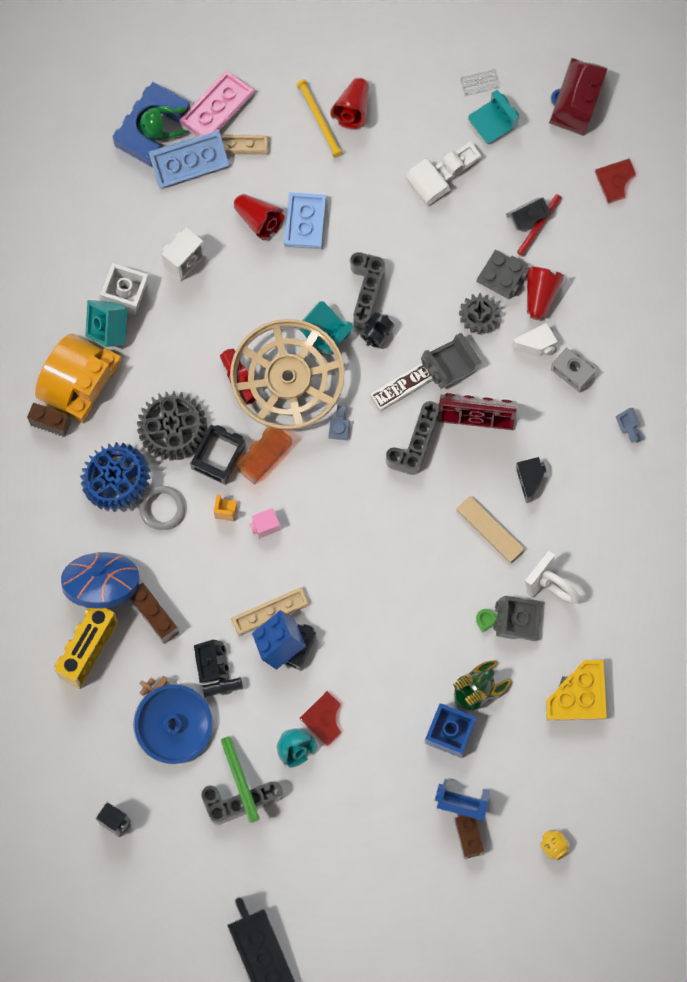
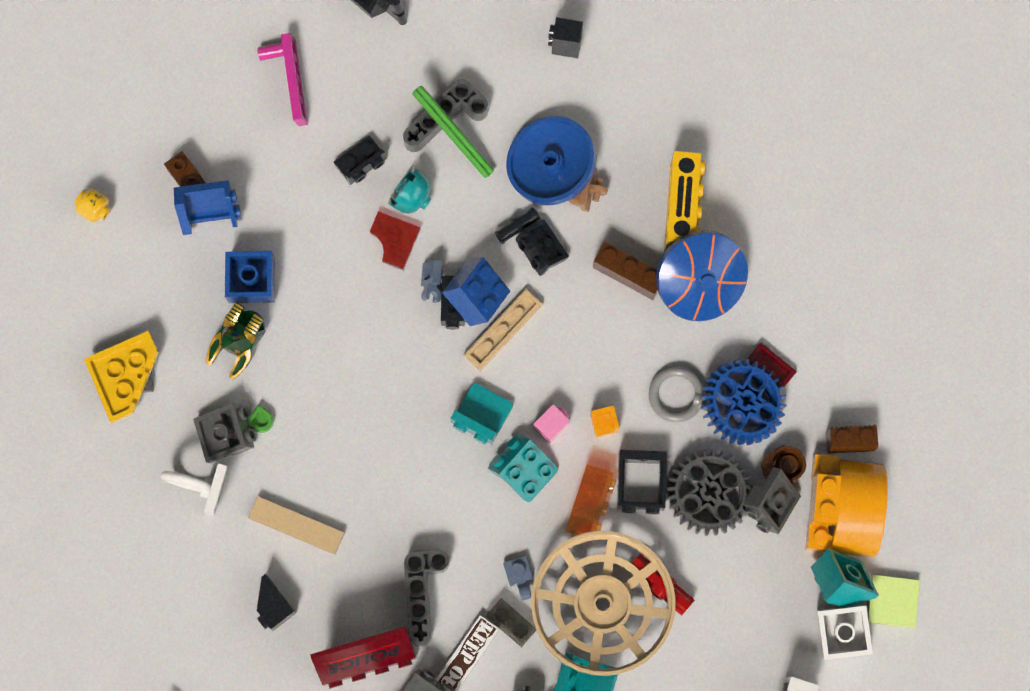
camera: 155 degrees right, 5 degrees up
(74, 297) = (896, 601): none -> yellowish green tile
(82, 506) = (773, 363): none -> dark red tile
(108, 421) = (787, 459): none -> reddish brown hat
(132, 393) = (772, 502): none -> dark grey plate
(302, 501) = (523, 467): none -> teal bracket
(308, 671) = (431, 277): none -> sand blue plate
(315, 551) = (481, 414): none -> teal bracket
(323, 793) = (360, 160): none -> black bracket
(343, 912) = (289, 51): none -> dark pink piece
(360, 394) = (511, 622): none -> clear smoke plate

